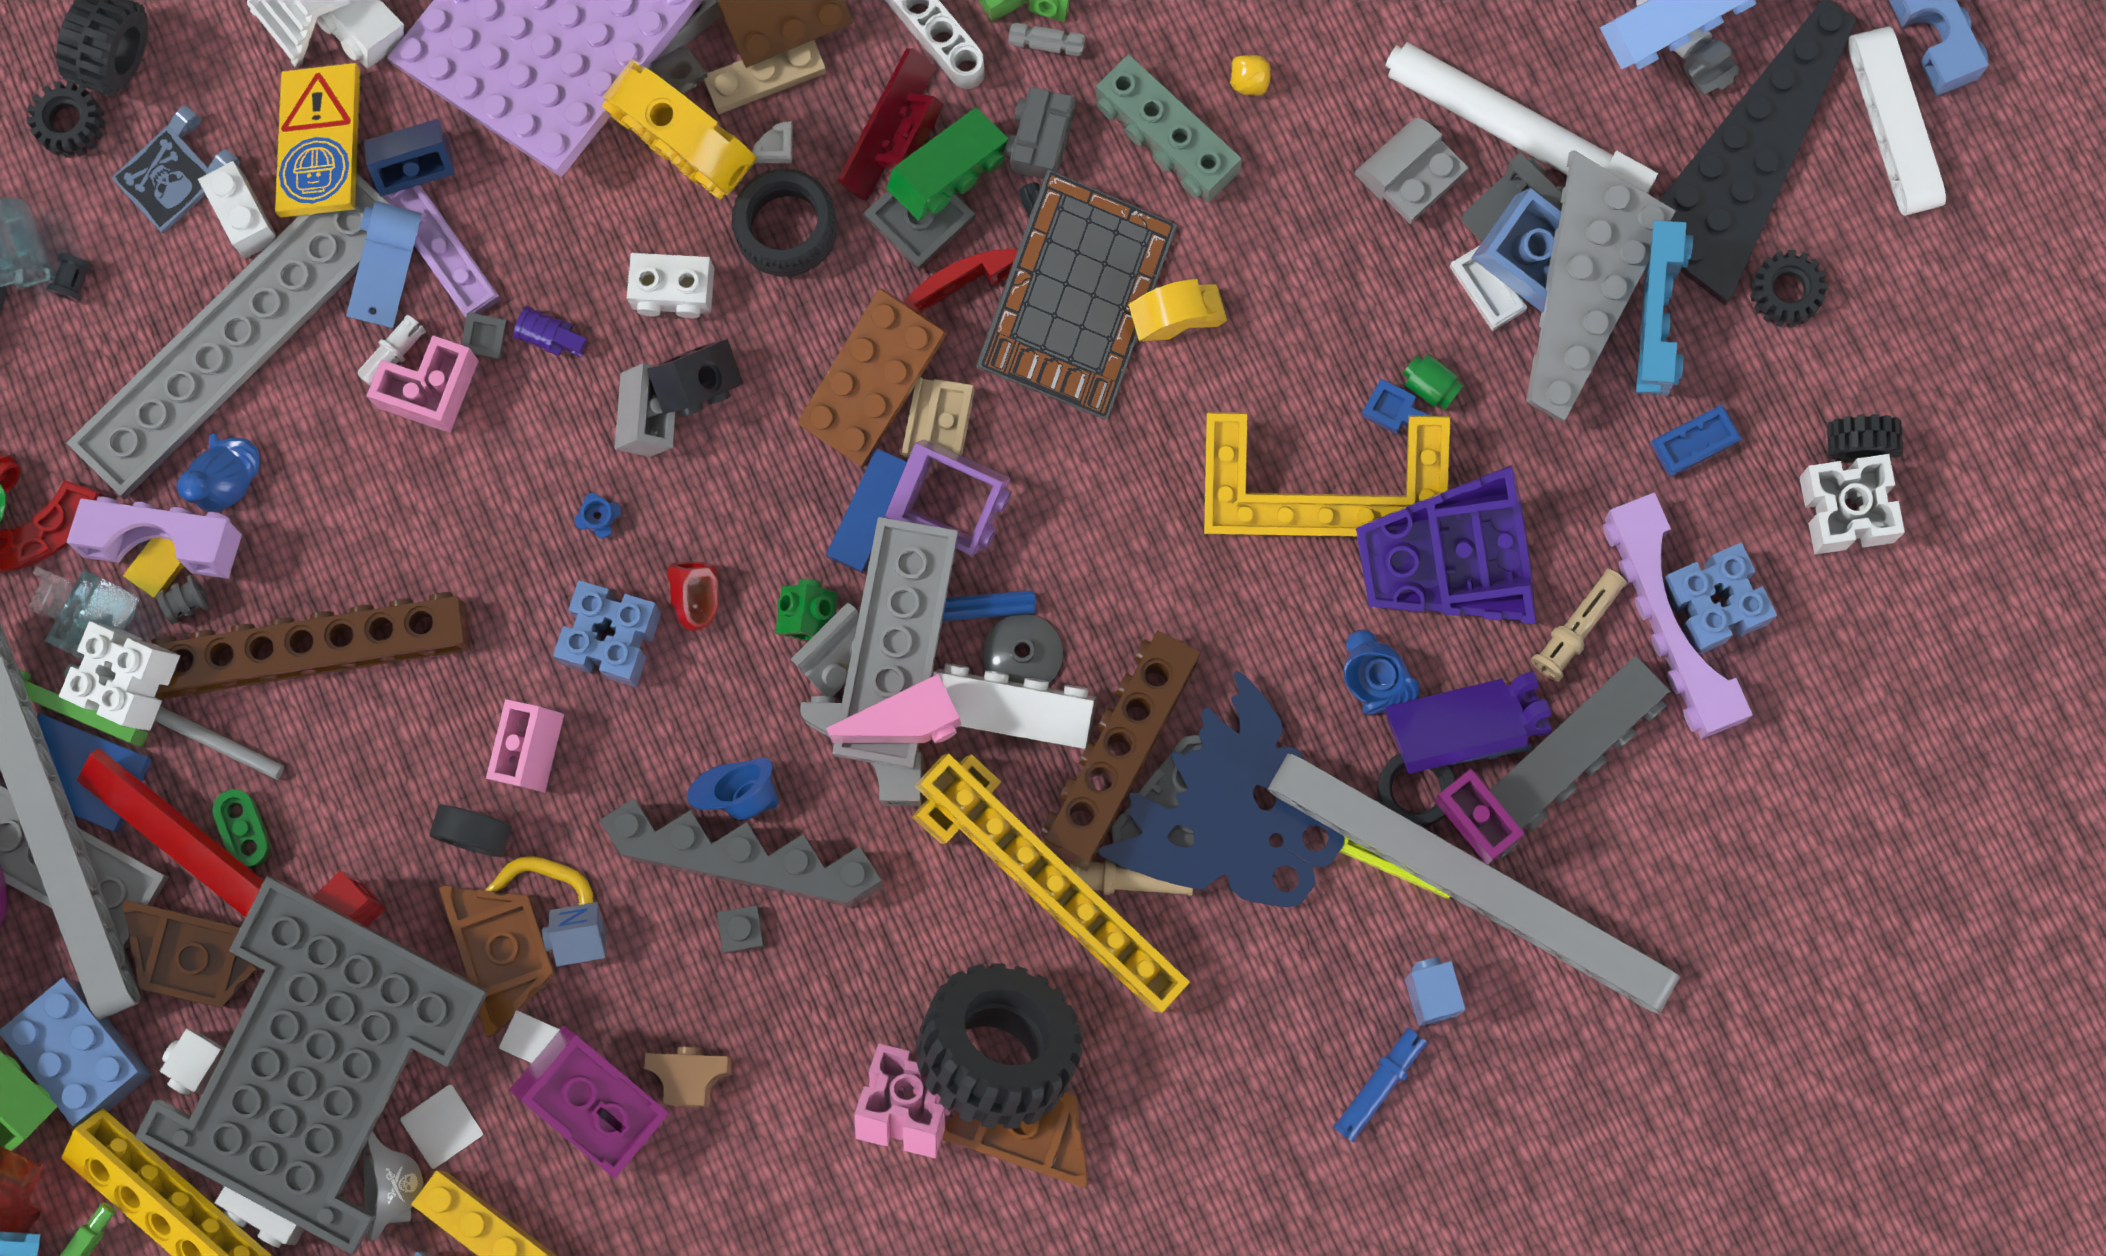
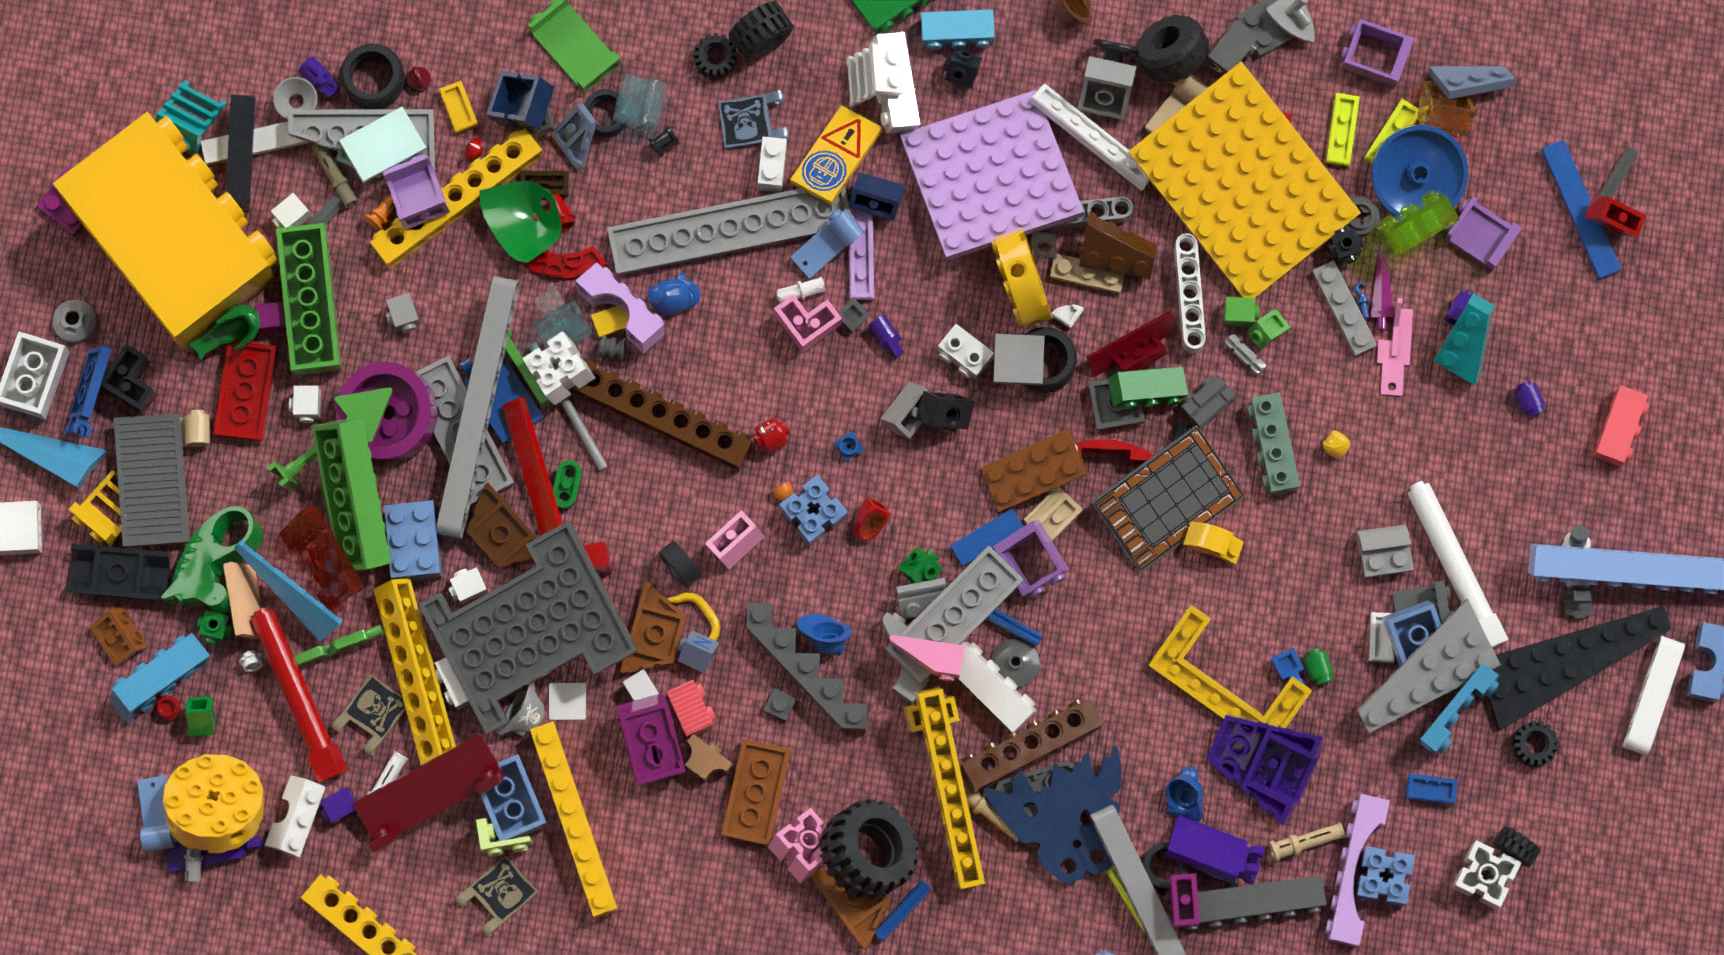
camera: 25 degrees right, 0 degrees up
(480, 571) = (771, 435): none -> red head
(547, 635) = (783, 491): none -> orange hinge
(619, 1019) = (691, 709): none -> coral brick
(748, 240) = (1019, 359): none -> light grey tile
(788, 1073) = (756, 792): none -> dark orange plate
(1101, 1097) = (902, 911): none -> blue axle

